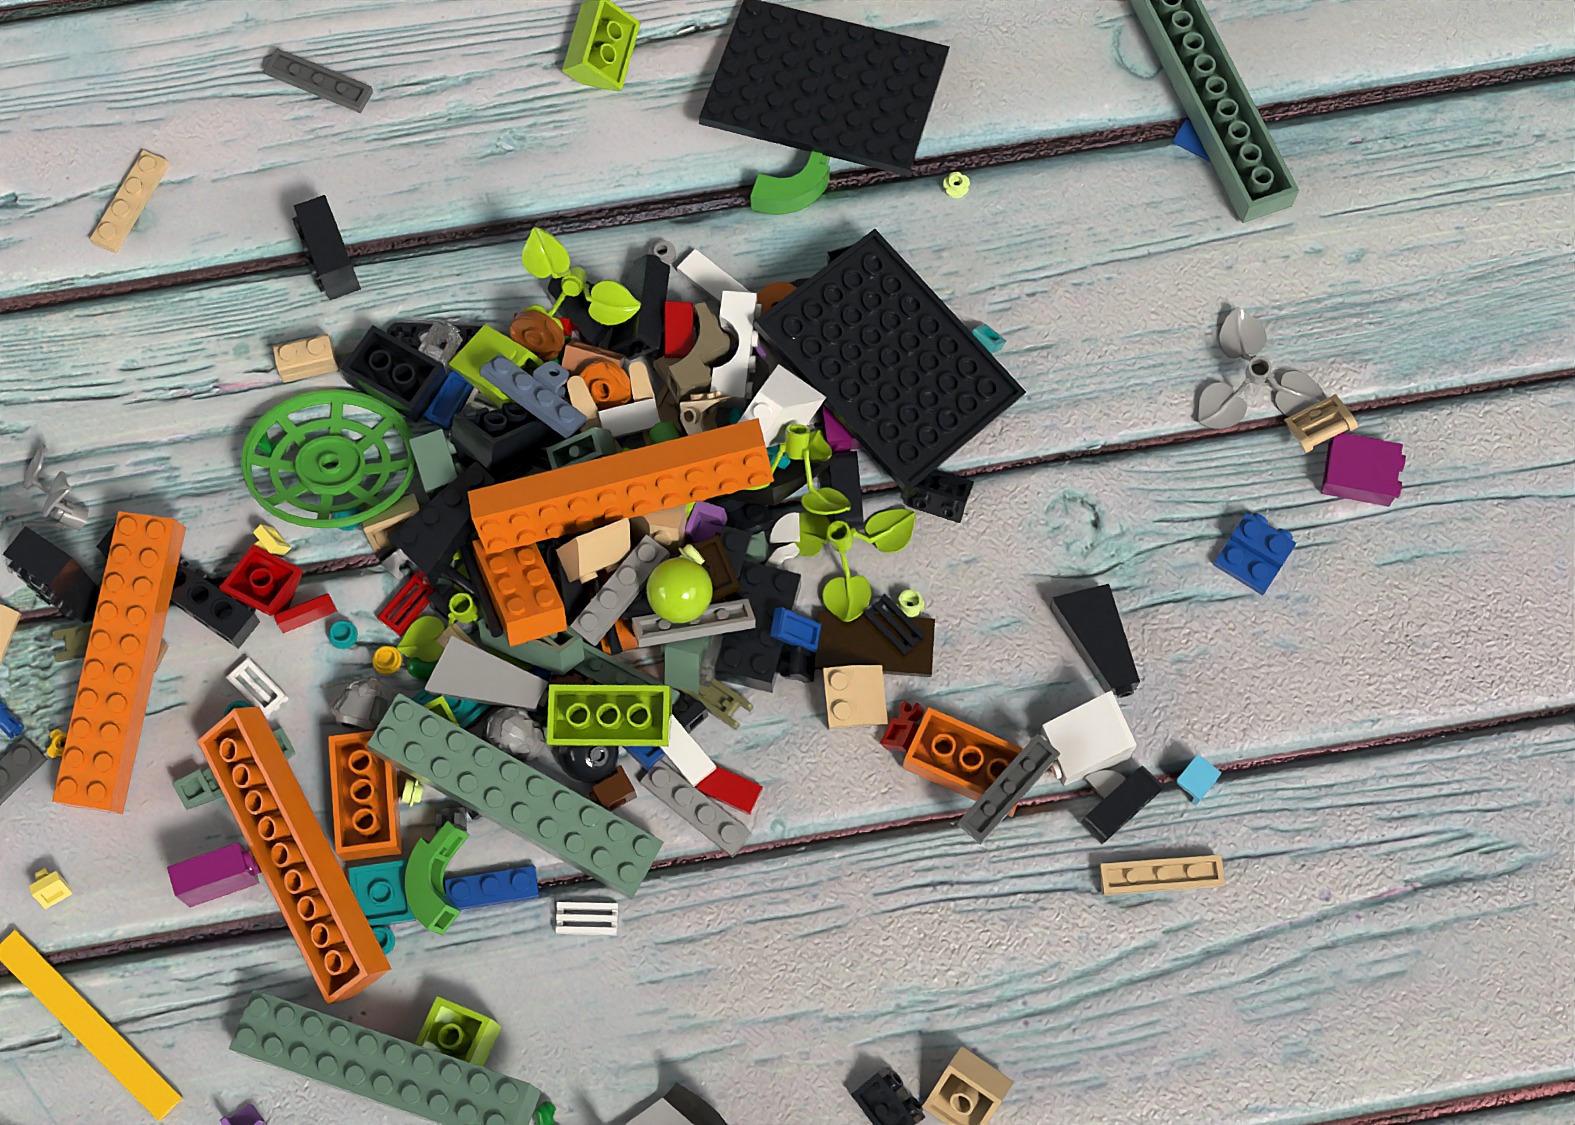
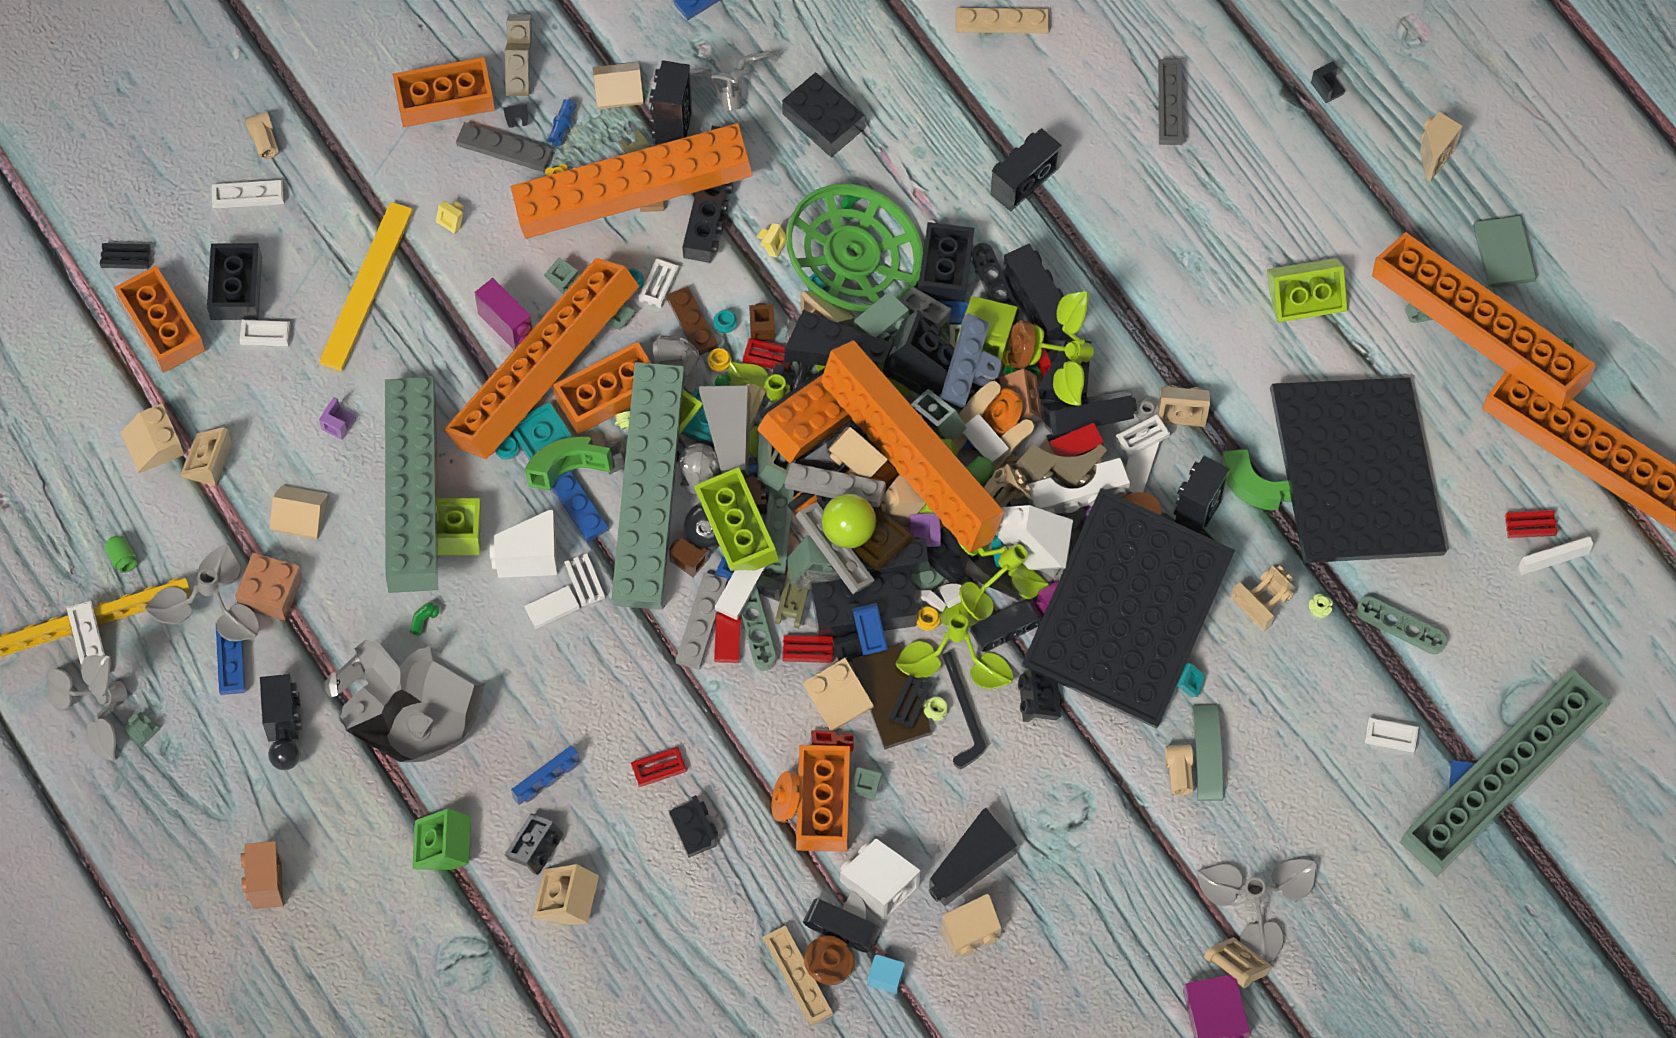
camera: 65 degrees right, 5 degrees down
(144, 425) = (823, 114): none -> black brick
(263, 581) = (737, 247): red slope -> none
(305, 358) = (930, 197): tan brick -> none
(305, 613) = (728, 288): red tile -> none
(322, 670) = (692, 320): none -> reddish brown plate
(357, 586) = (762, 322): none -> reddish brown brick
(437, 334) = (984, 276): clear brick -> none
(439, 415) = (933, 311): none -> dark grey hinge
(481, 296) = (1035, 292): none -> black brick
(526, 965) = (526, 548): none -> white slope
(604, 969) = (551, 607): none -> white tile
(677, 212) = (1183, 406): none -> tan slope
(691, 553) = (883, 522): yellowish green plate -> none
(693, 288) = (1125, 445): none -> white tile
(728, 747) = (754, 625): none -> sand green beam
(790, 685) = (816, 641): none -> red tile
(797, 235) = (1201, 494): none -> black brick
(802, 560) = (928, 612): none -> yellow plate
(813, 1058) = (545, 776): none -> blue plate
(849, 953) = (658, 767): none -> red tile
(918, 211) = (1277, 582): none -> tan tile
(941, 916) = (693, 827): none -> black bracket
(949, 798) = (785, 797): none -> orange plate
(968, 577) = (966, 758): none -> black piece
(970, 709) = (865, 783): none -> sand green tile
(1007, 119) = (1403, 621): none -> sand green beam
(1008, 789) = (807, 826): dark grey plate -> none
(1071, 354) = (1208, 753): none -> sand green slope
(1073, 388) = (1179, 761): none -> tan piece
(1123, 181) = (1391, 734): none -> white tile
(1157, 834) = (829, 960): none -> dark orange tile
(1180, 669) = (971, 926): none -> tan slope
(1255, 552) = (1102, 954): blue plate -> none

